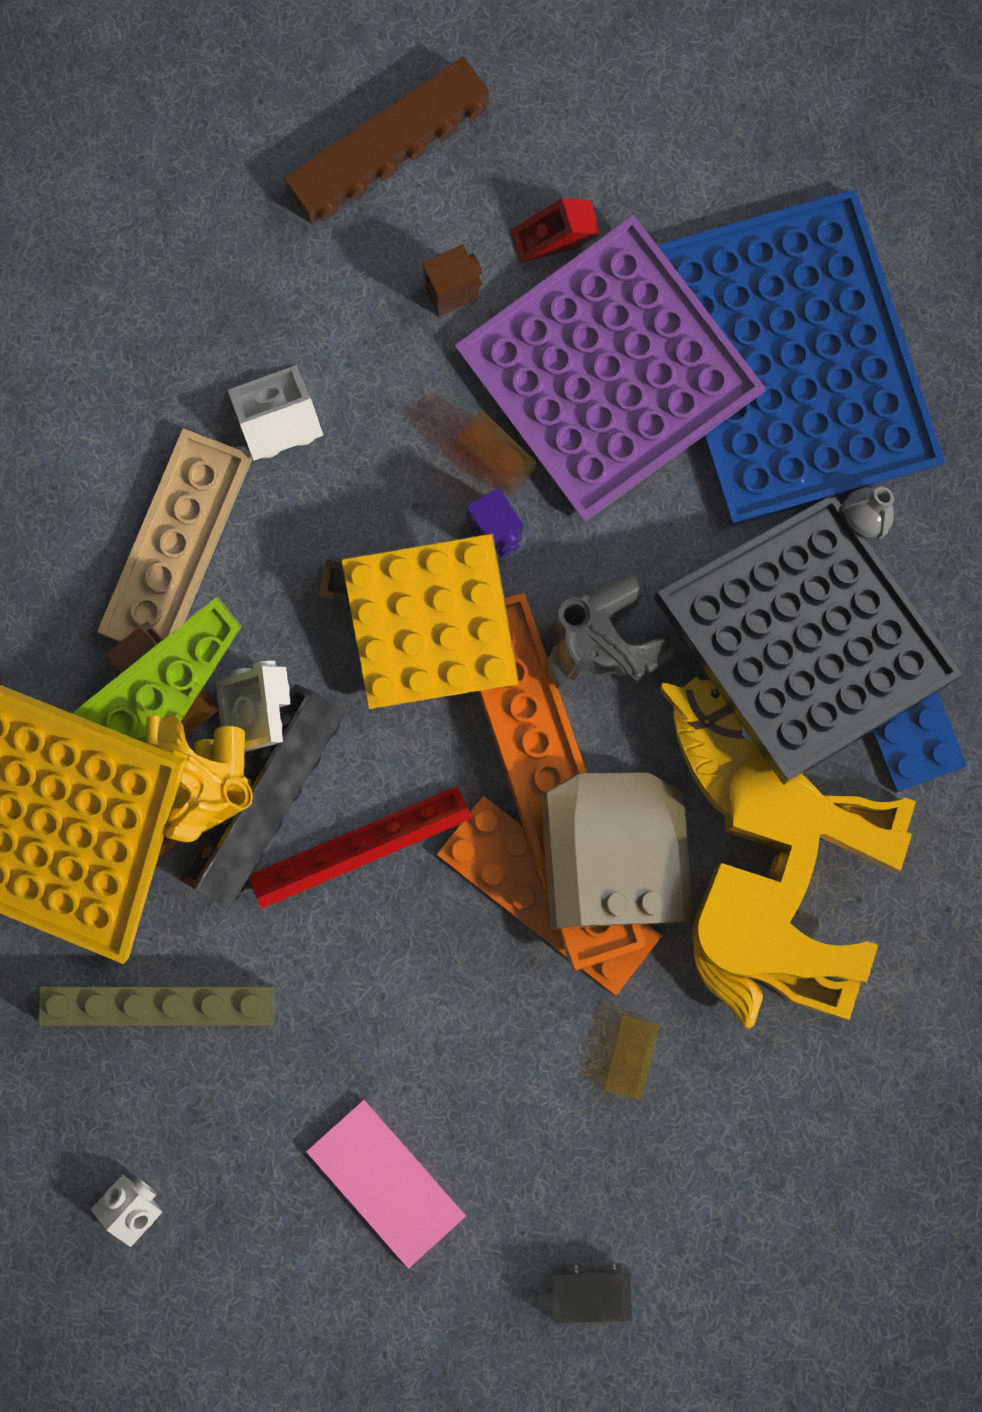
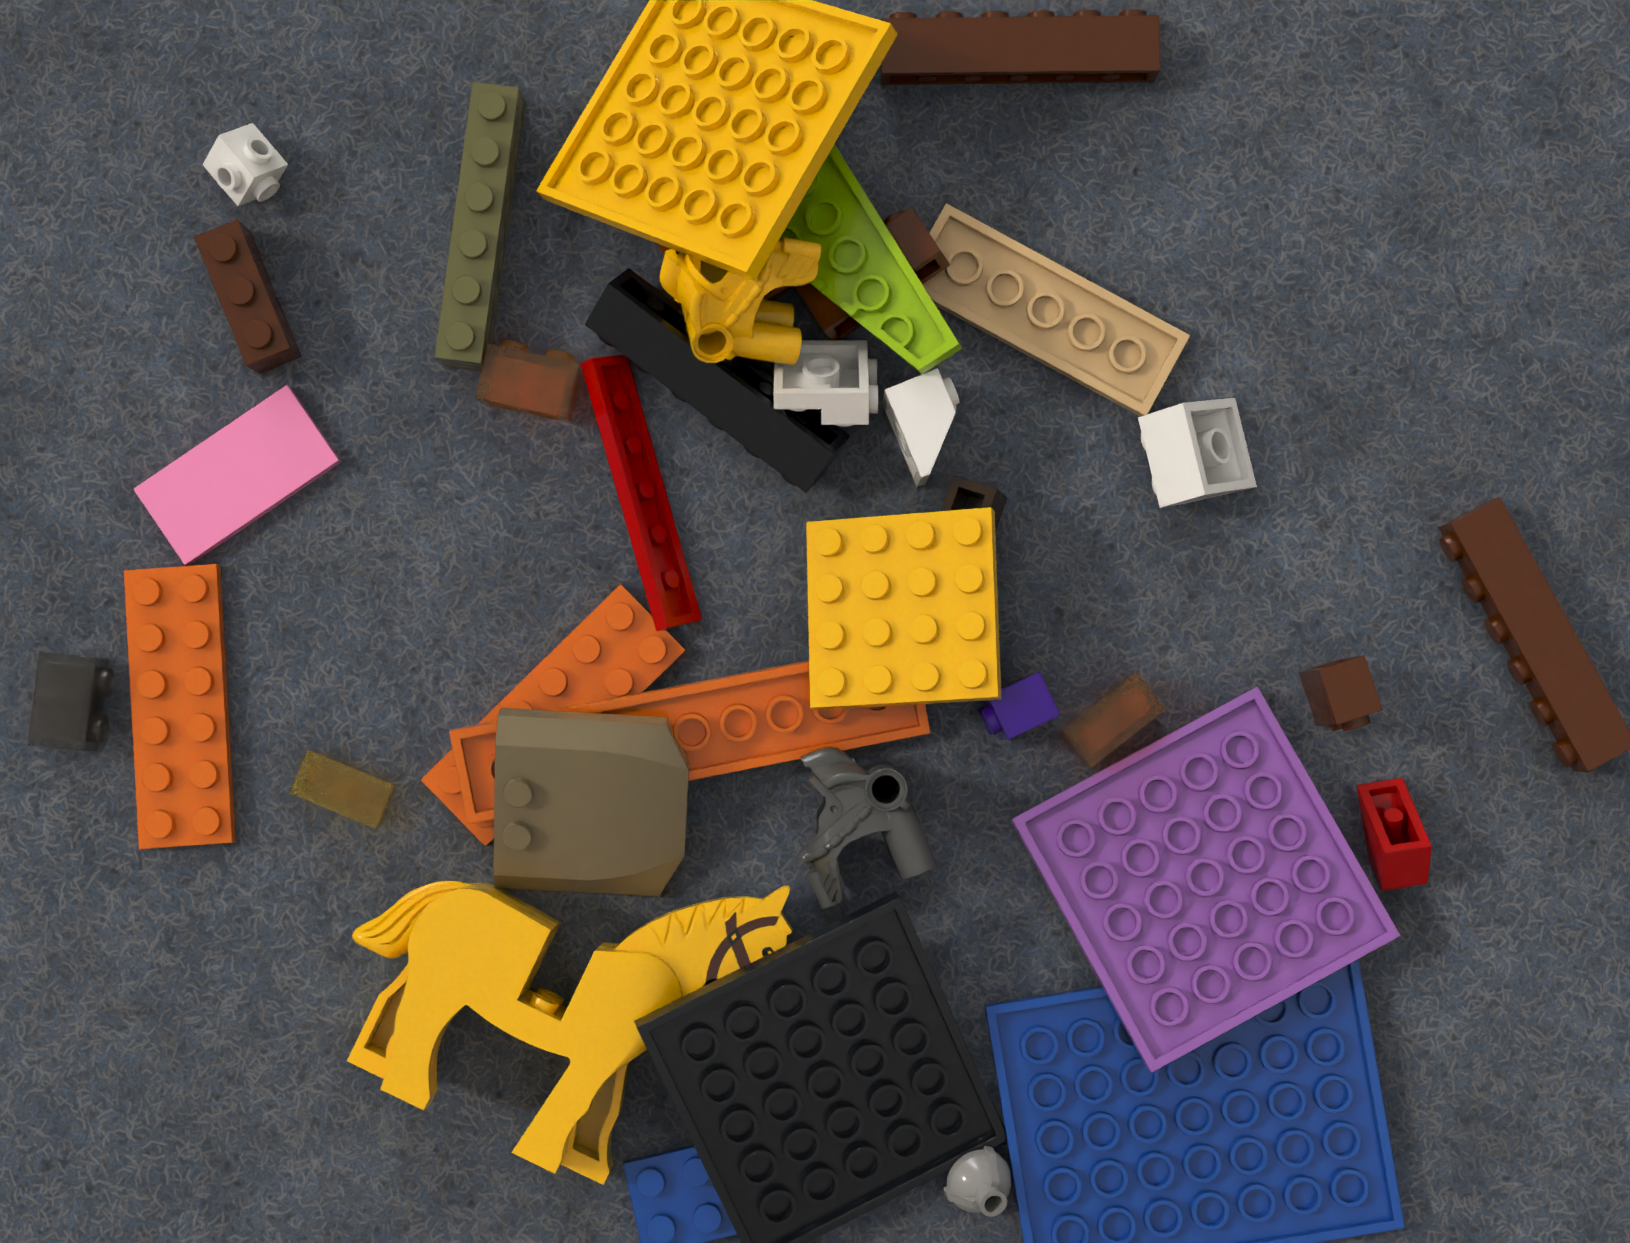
camera: 100 degrees right, 5 degrees up
(237, 1193) = (247, 296): none -> reddish brown brick
(279, 626) = (920, 418): none -> white slope
(280, 948) = (530, 381): none -> clear orange brick
(582, 1204) = (179, 706): none -> orange plate

